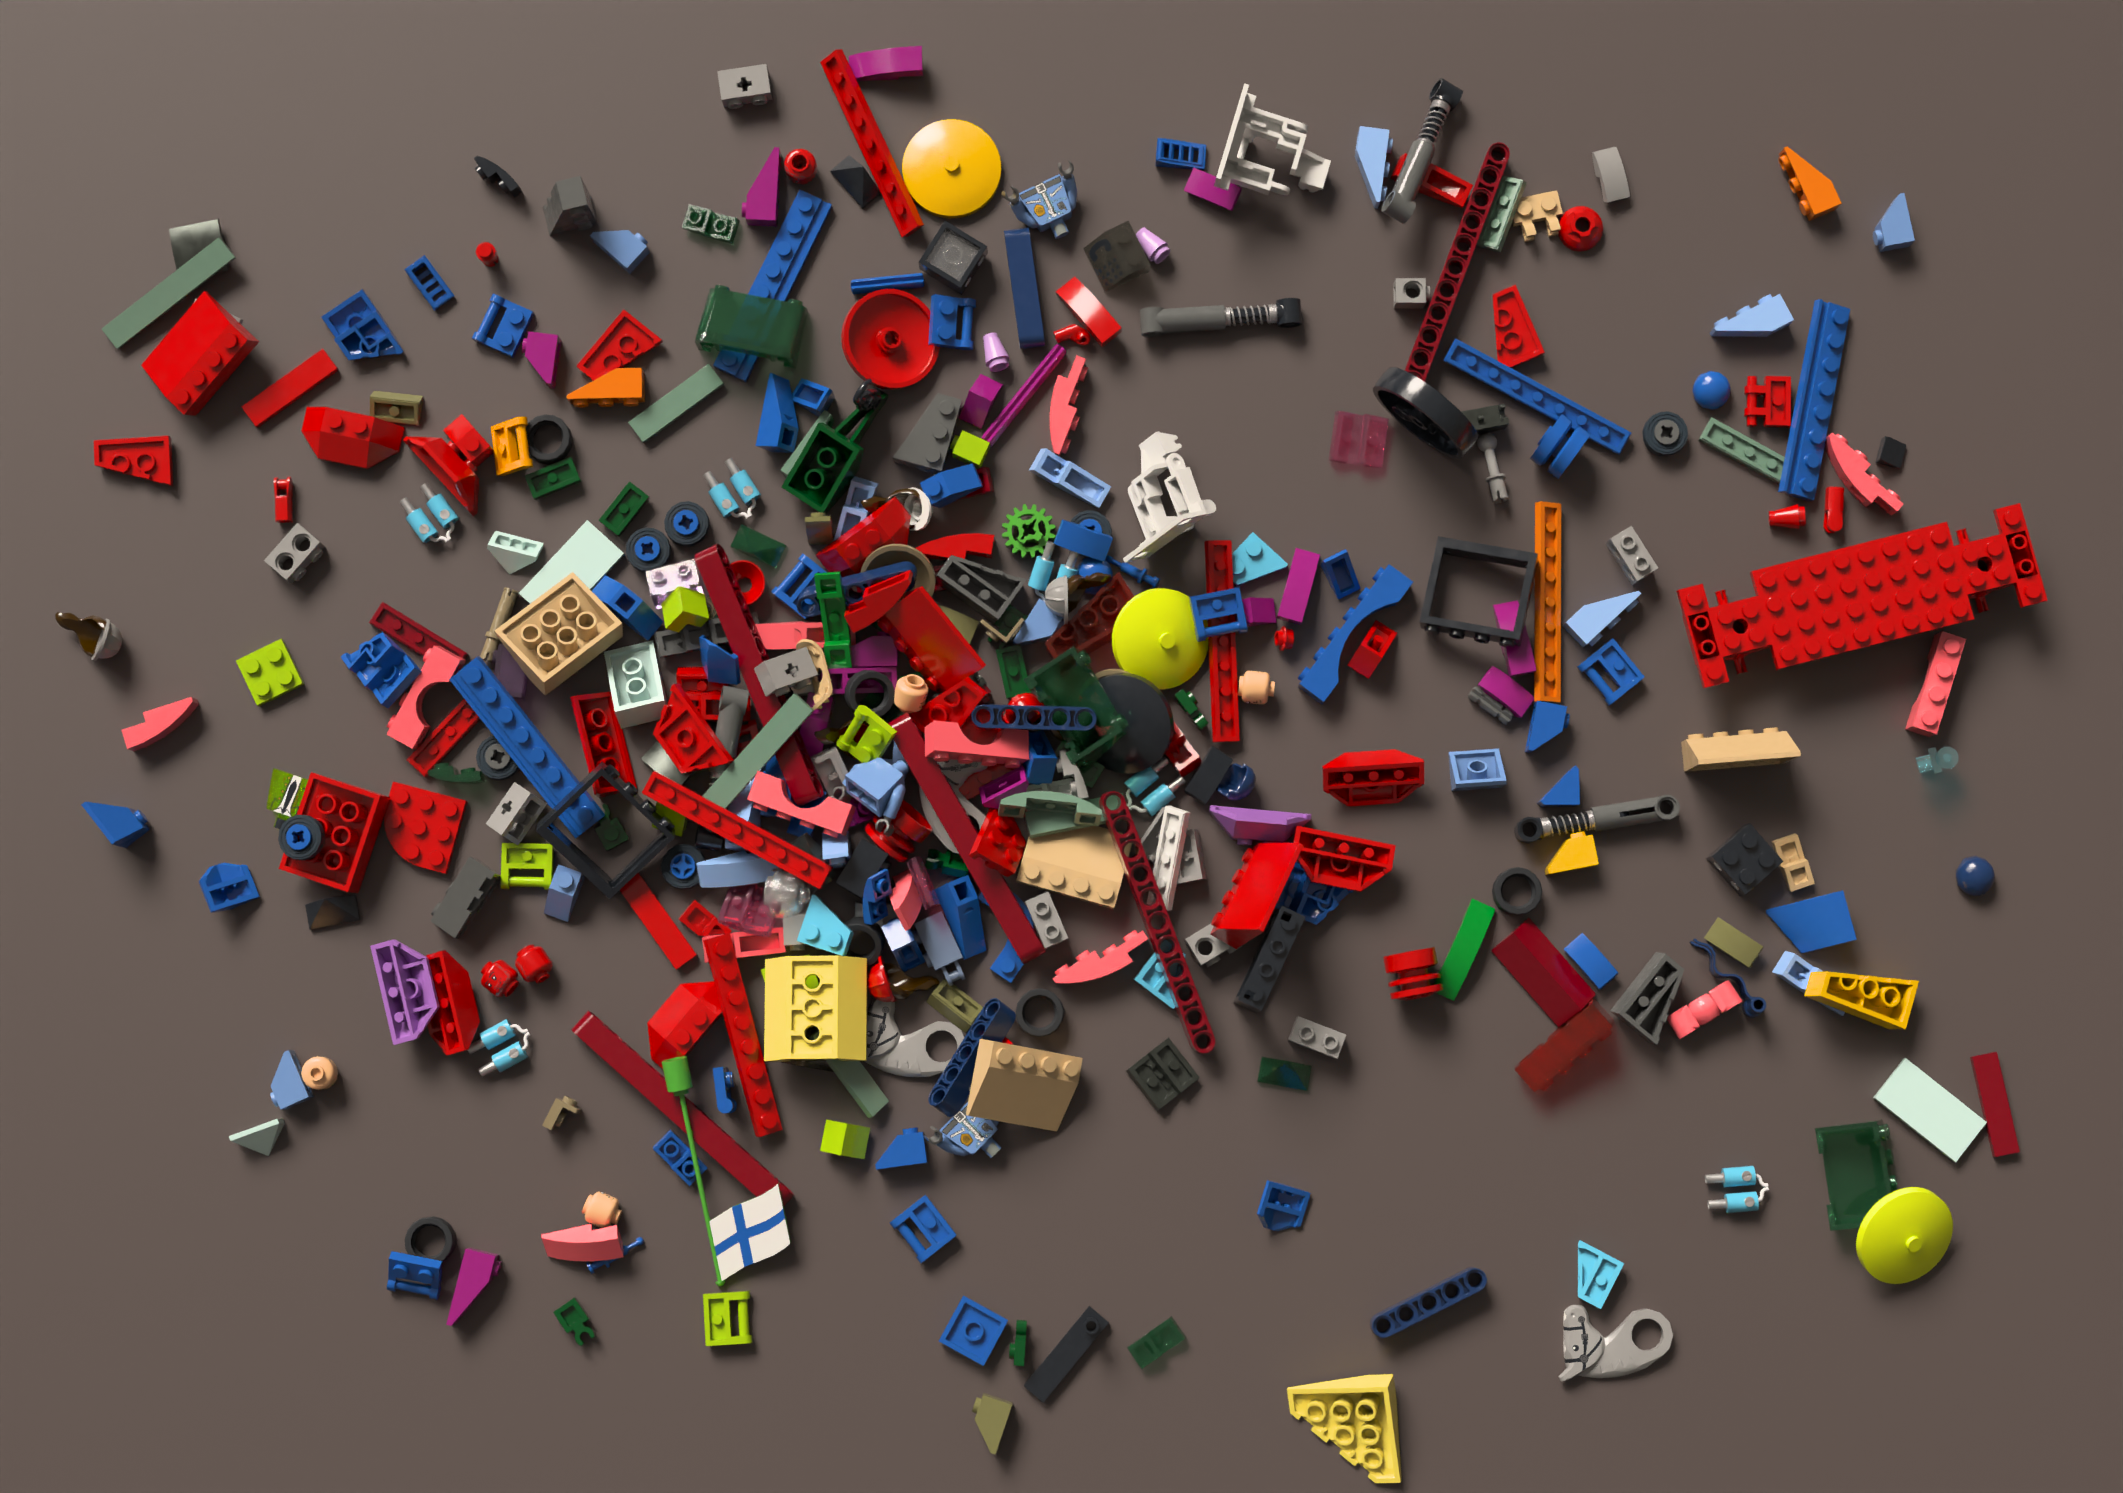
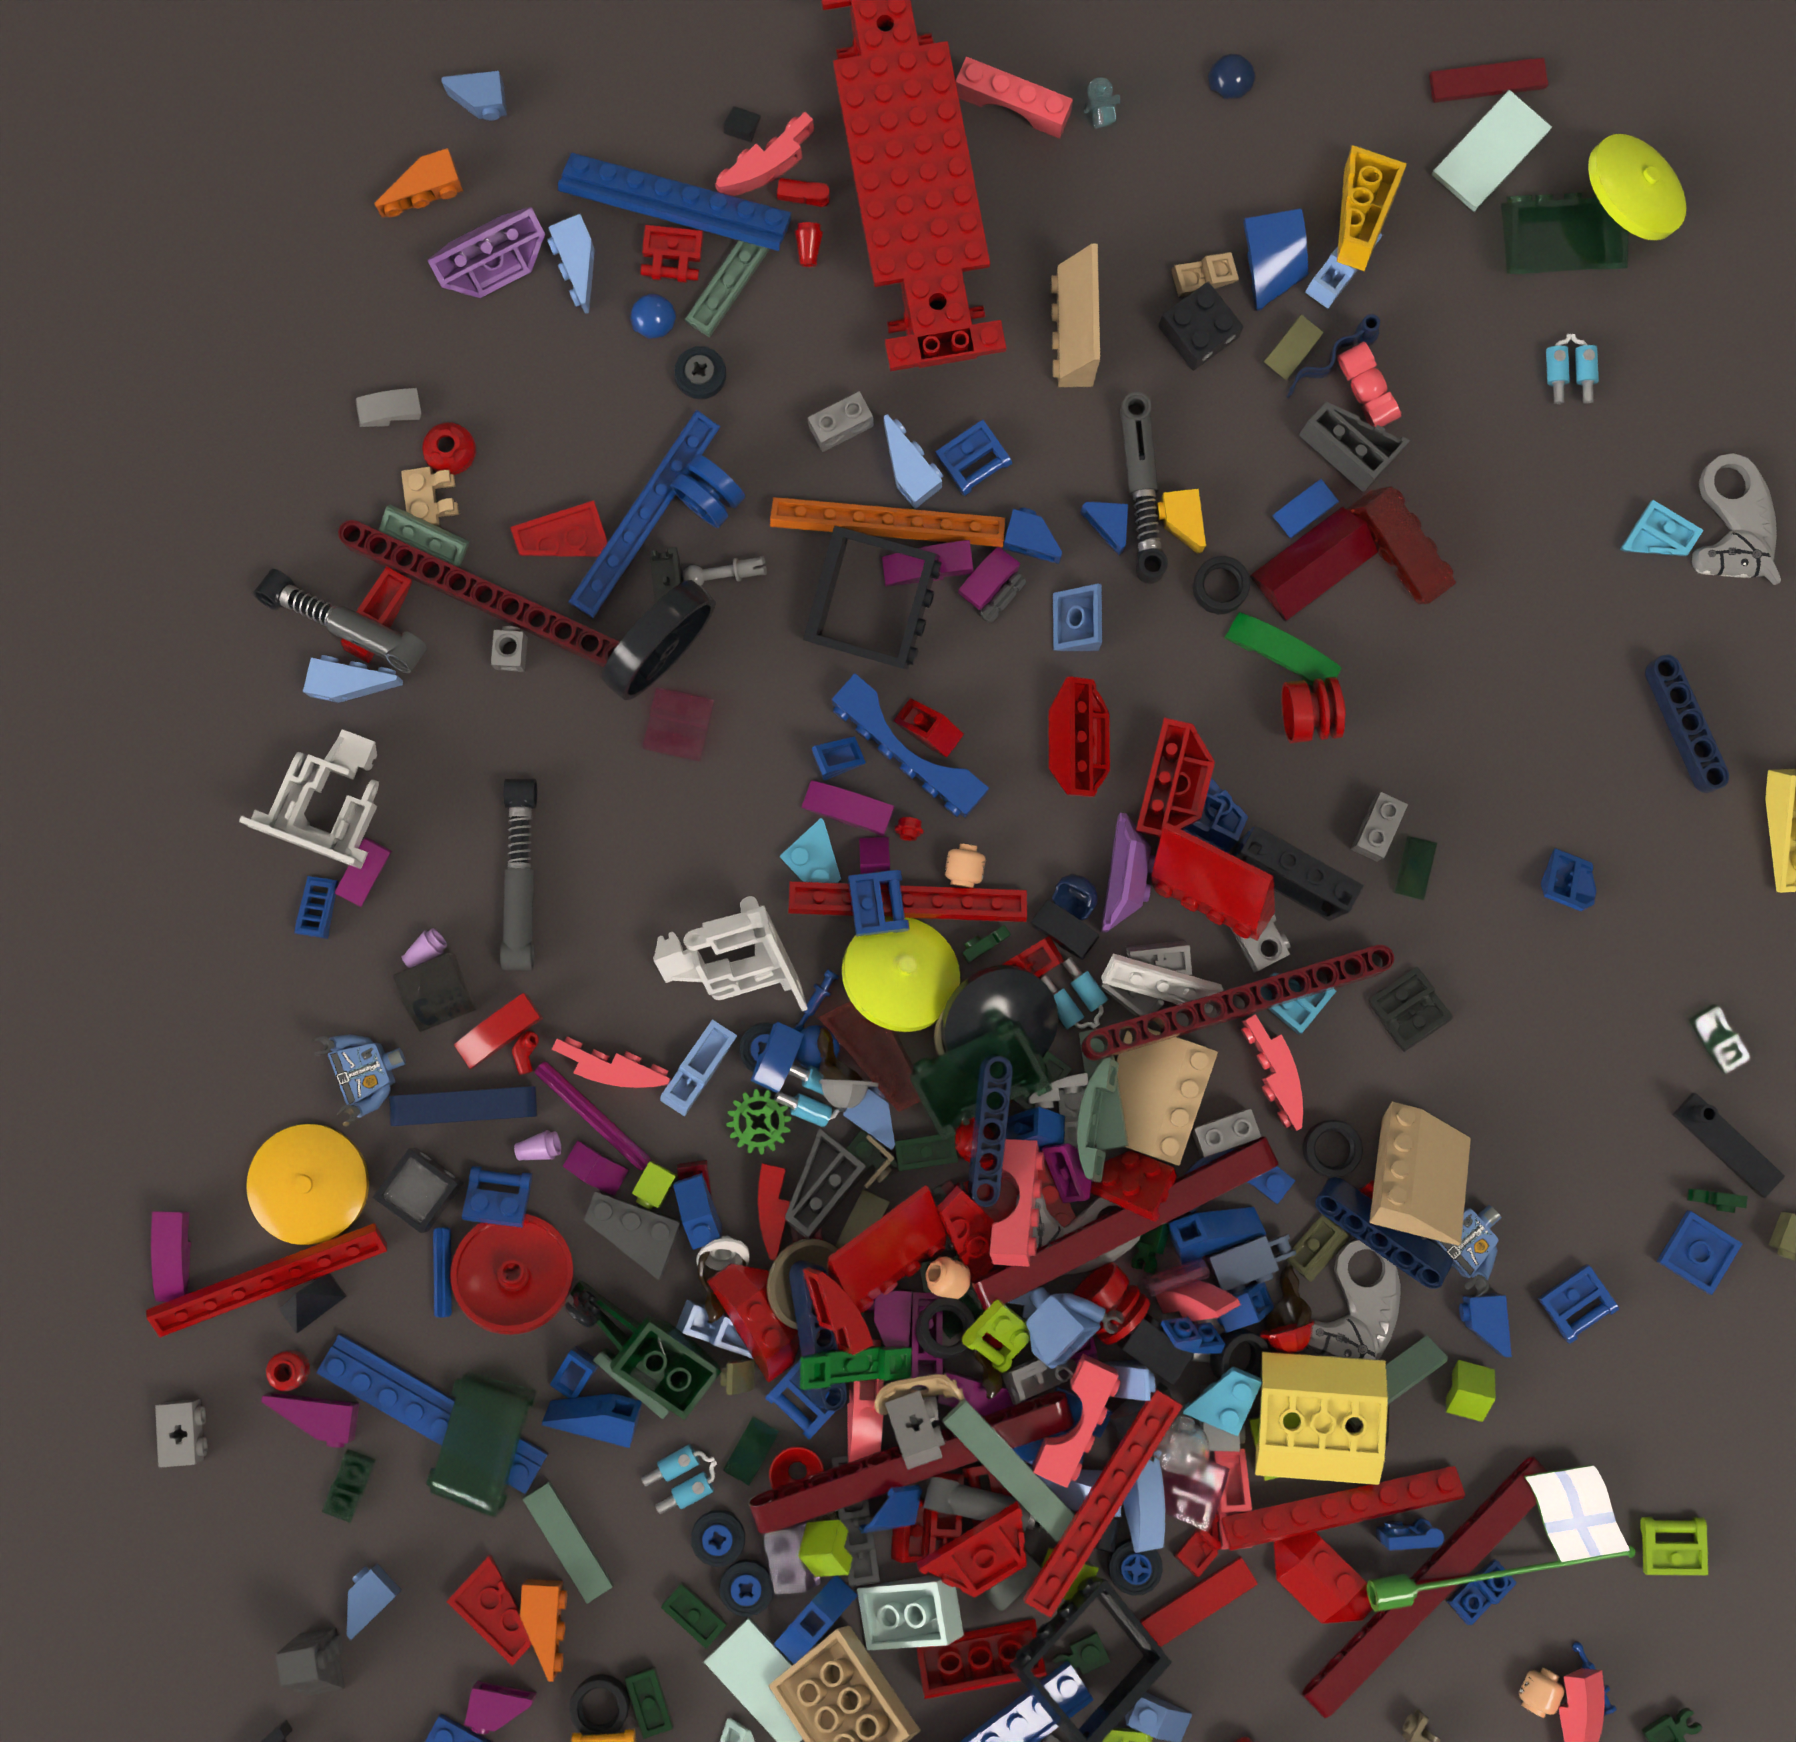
camera: 85 degrees left, 0 degrees up
(1751, 246) = (490, 254): none -> medium lavender wedge

